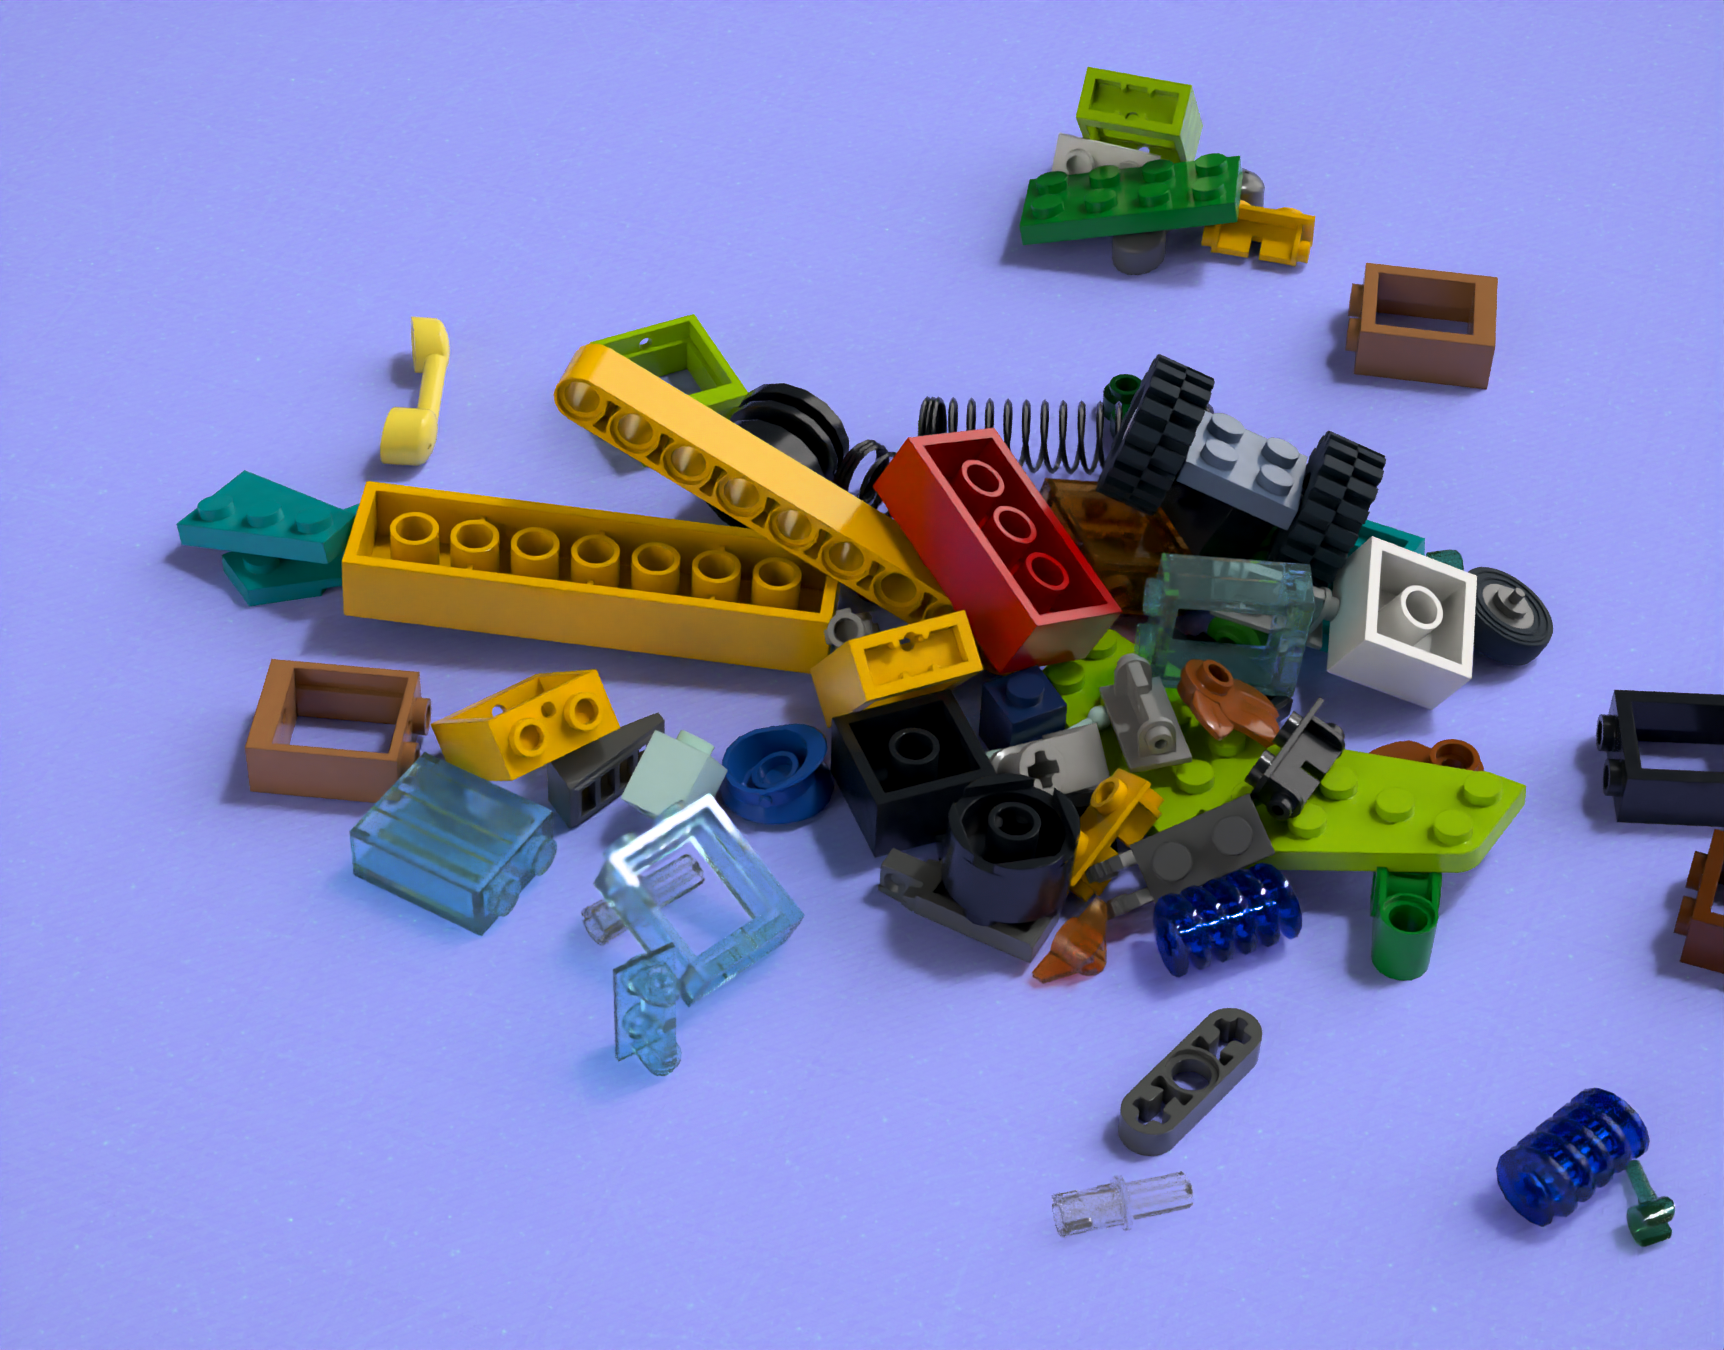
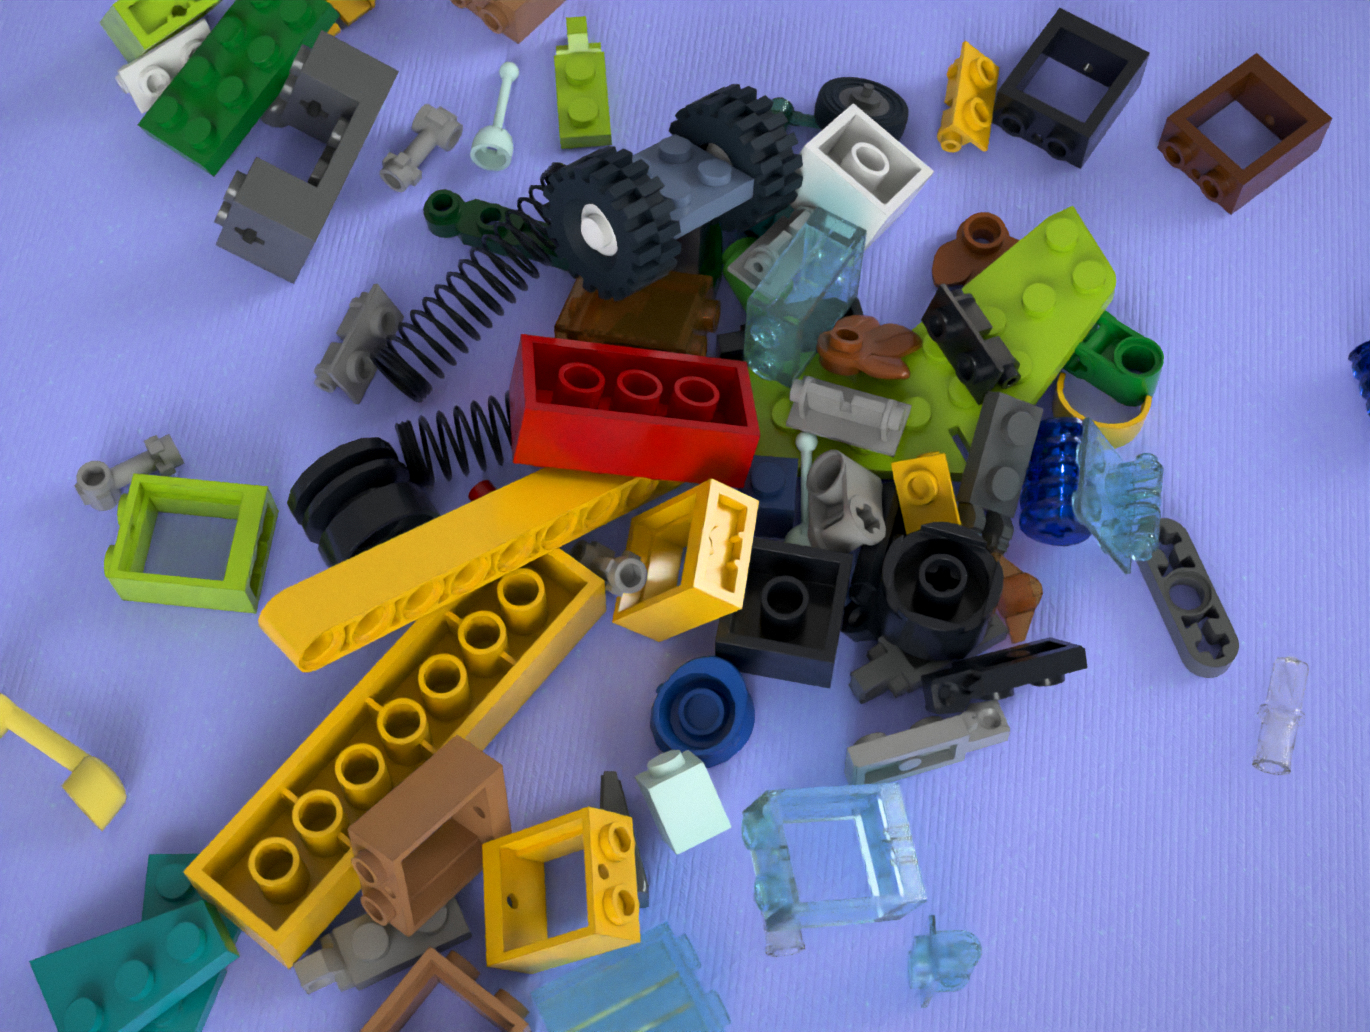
camera: 55 degrees left, 20 degrees up
(443, 677) = (368, 952): none -> light grey hinge
(488, 658) = (451, 784): none -> medium nougat window
(731, 337) = (101, 485): none -> light grey bar
(866, 937) = (926, 745): none -> light grey hinge
(905, 400) = (362, 329): none -> light grey hinge
(970, 947) = (999, 672): none -> black hinge
(1142, 283) = (335, 99): none -> dark grey plate
(1202, 351) = (433, 128): none -> light grey bar
(1229, 395) = (494, 135): none -> light aqua hinge
(1232, 949) = (1118, 498): none -> clear light blue hinge
(1324, 955) = (1117, 434): none -> yellow helmet
(1360, 417) = (581, 89): none -> lime hinge
(1585, 689) = (971, 101): none -> yellow hinge

